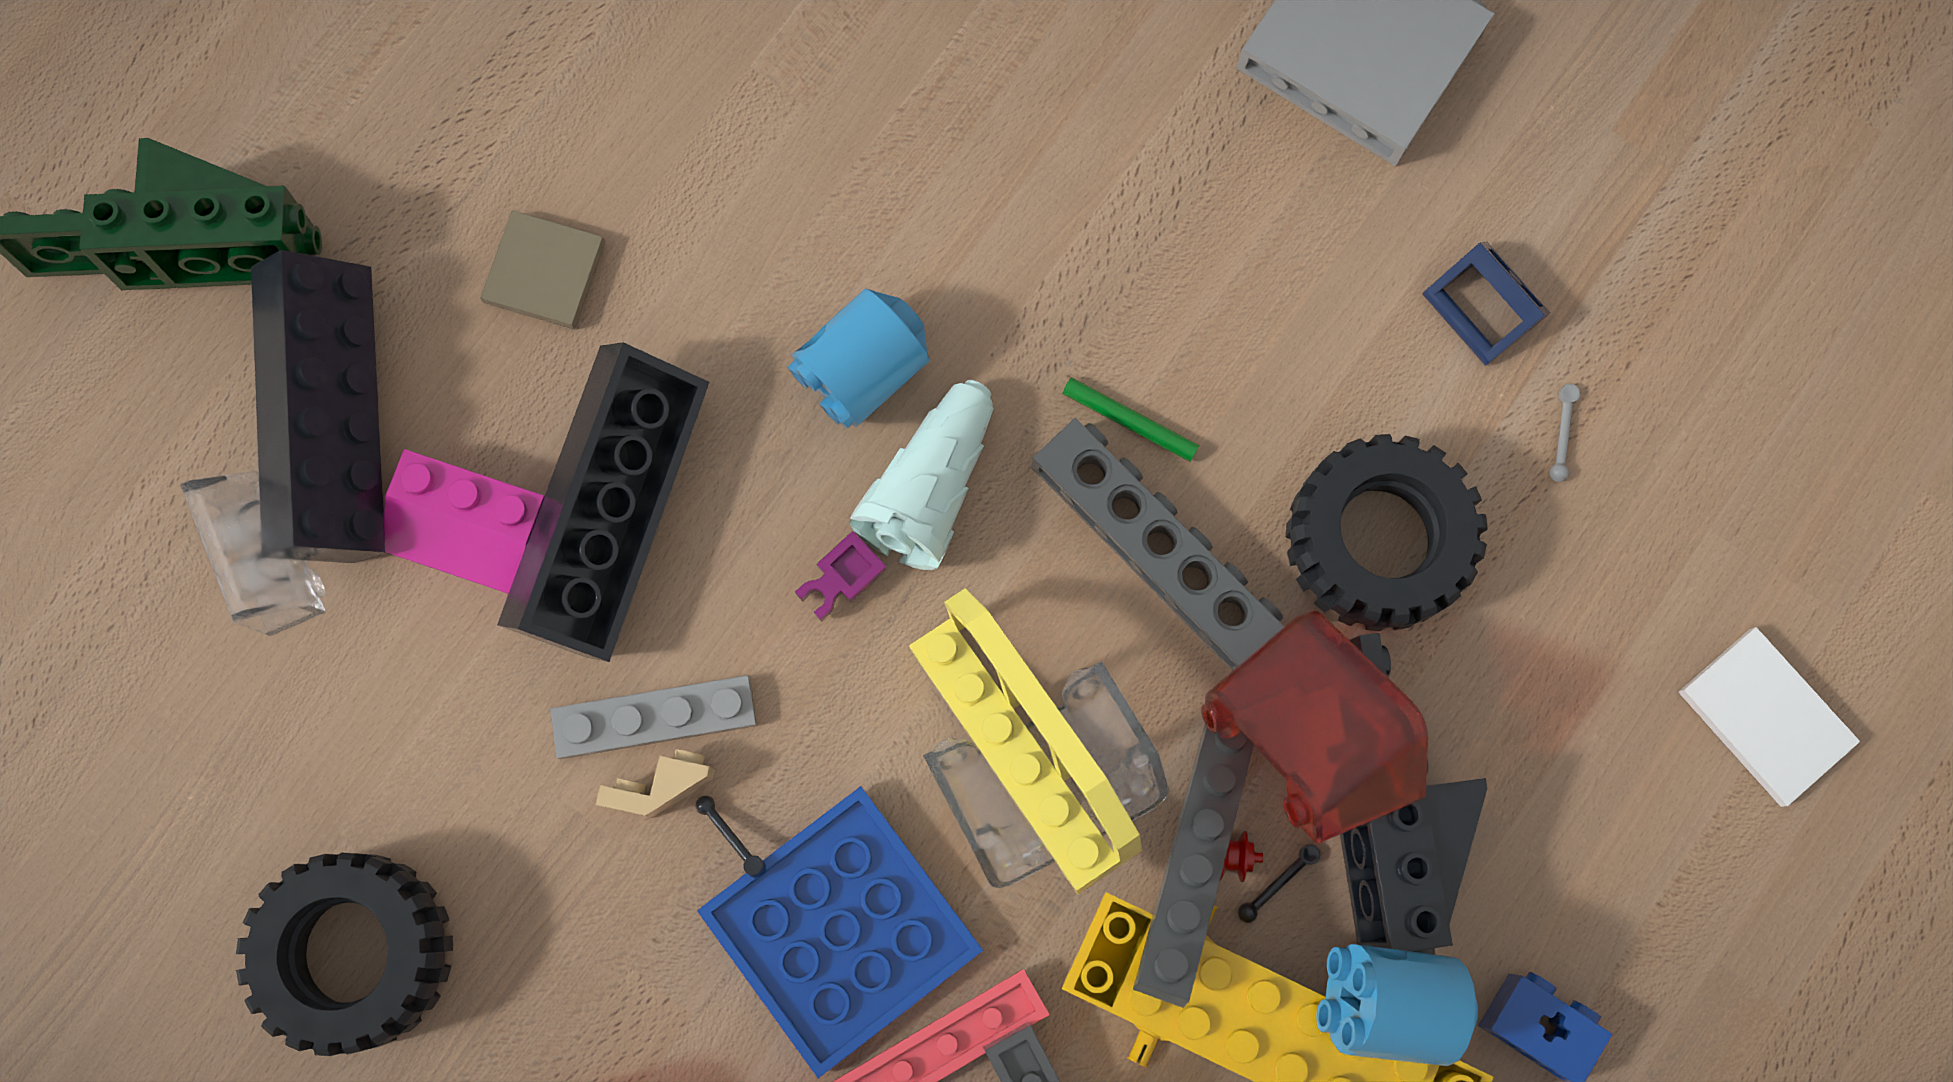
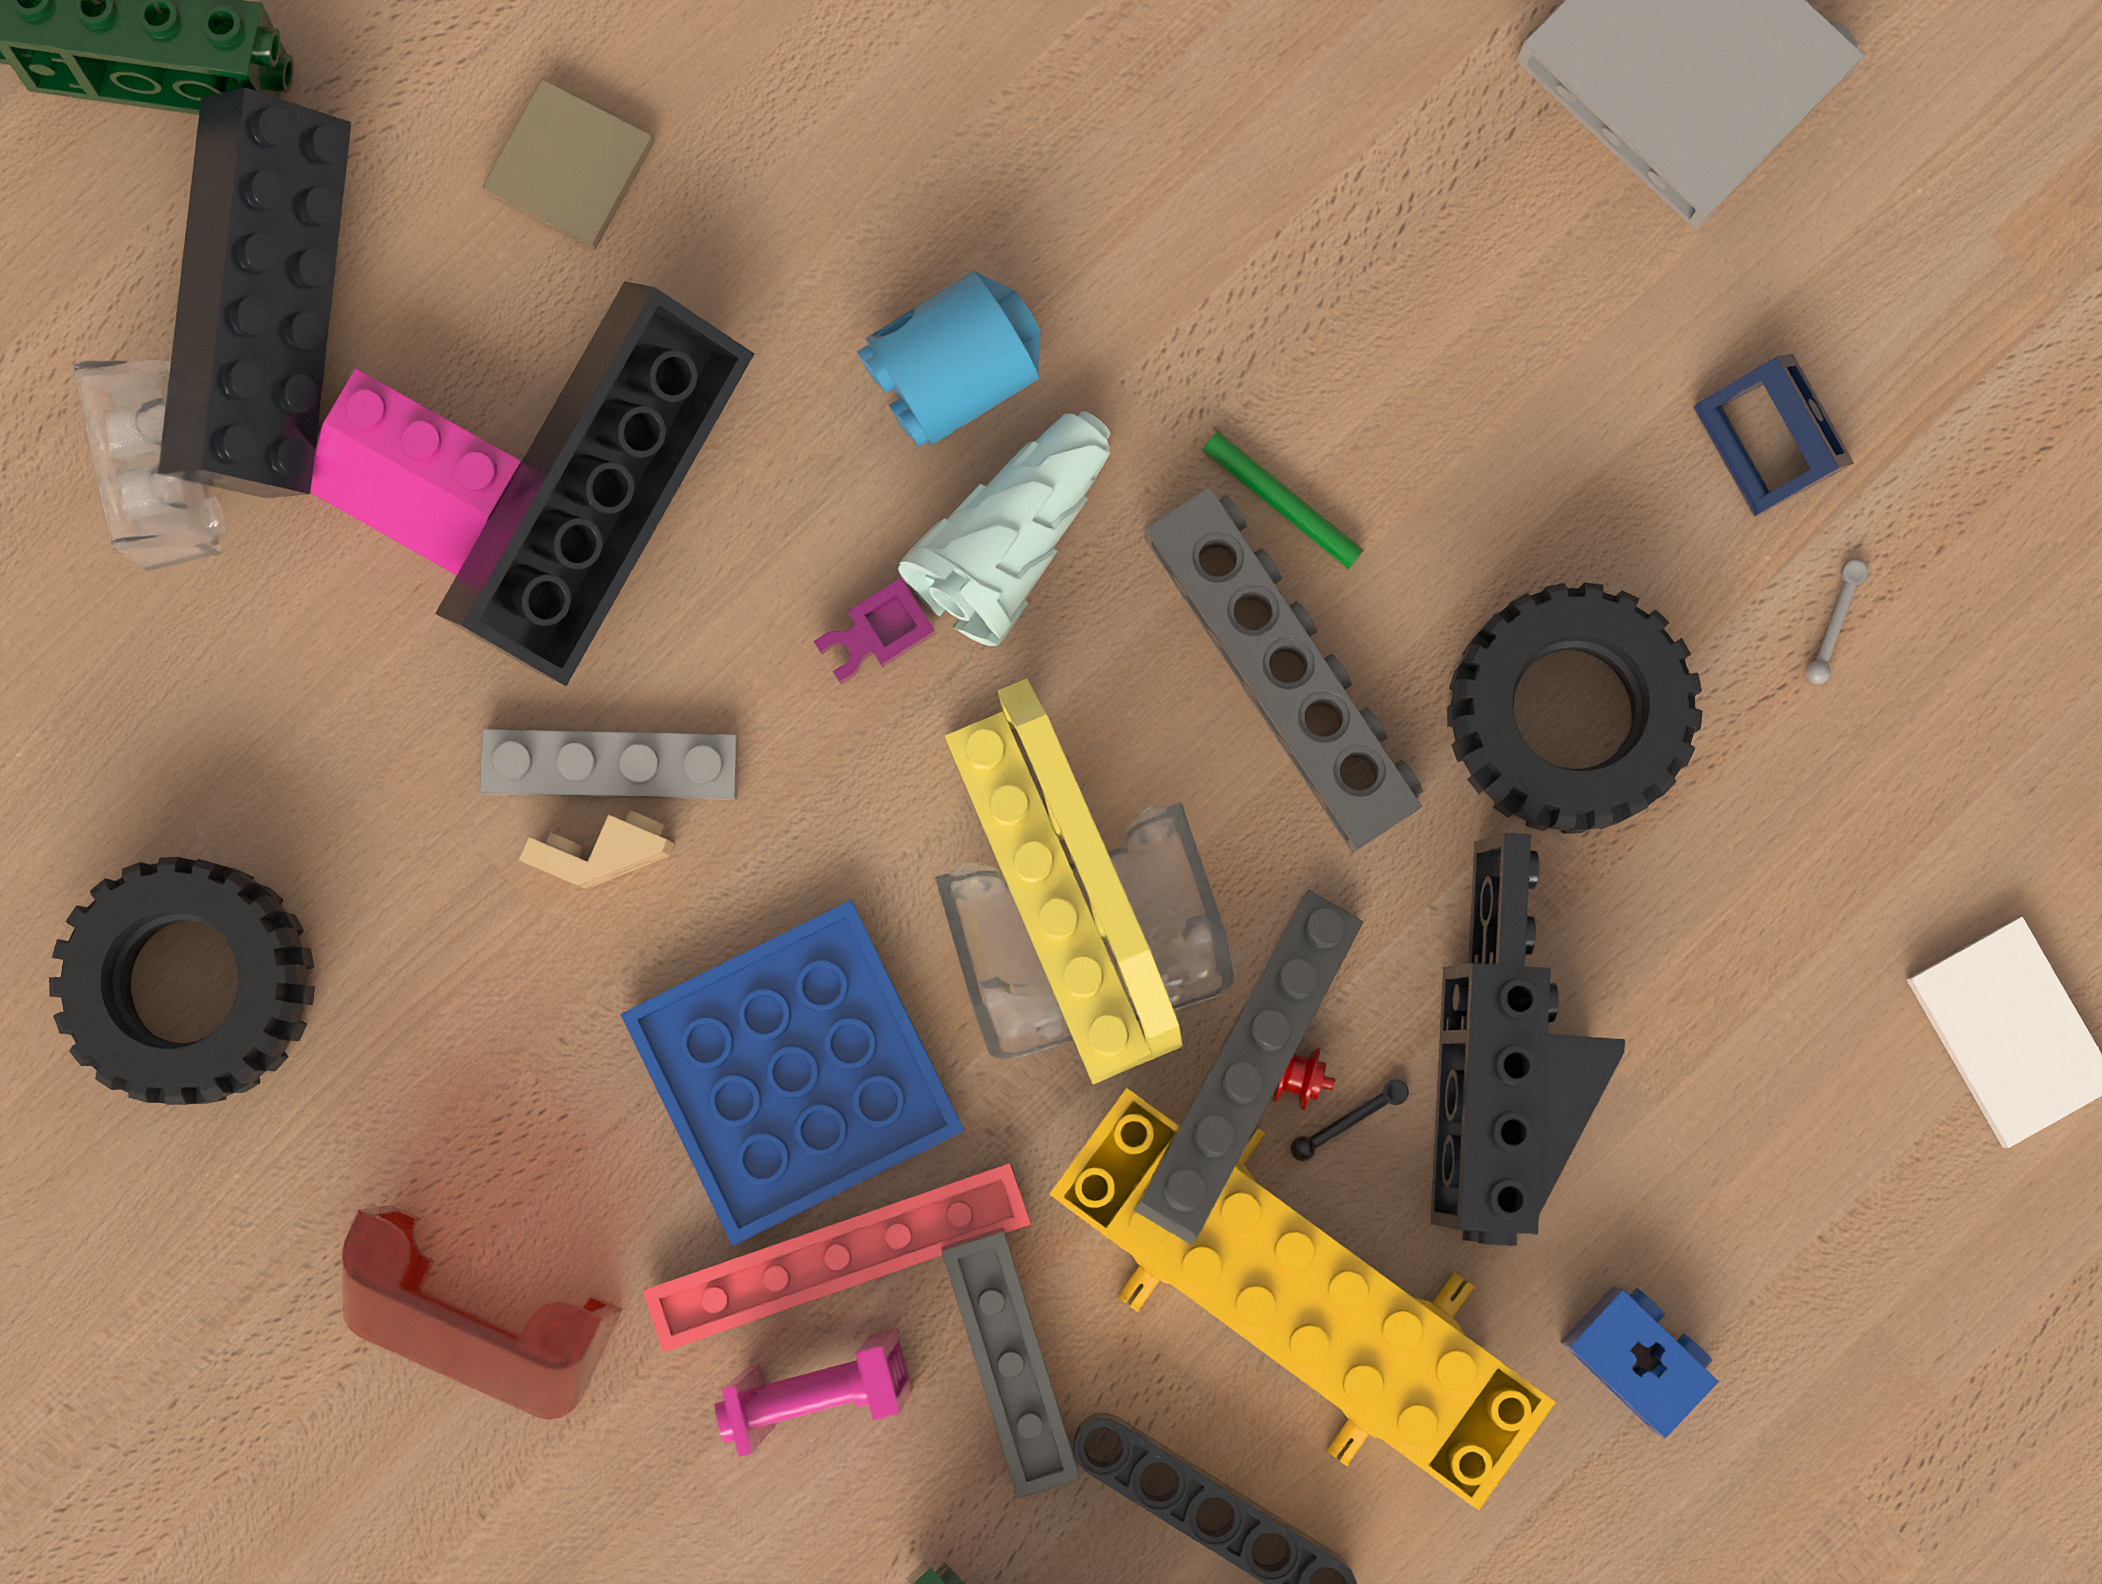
camera: 15 degrees right, 5 degrees up
(753, 865) = (699, 971): black hinge -> none
(1326, 725) = (1436, 936): clear red windscreen -> none
(1398, 1005) = (1452, 1291): dark azure cylinder -> none

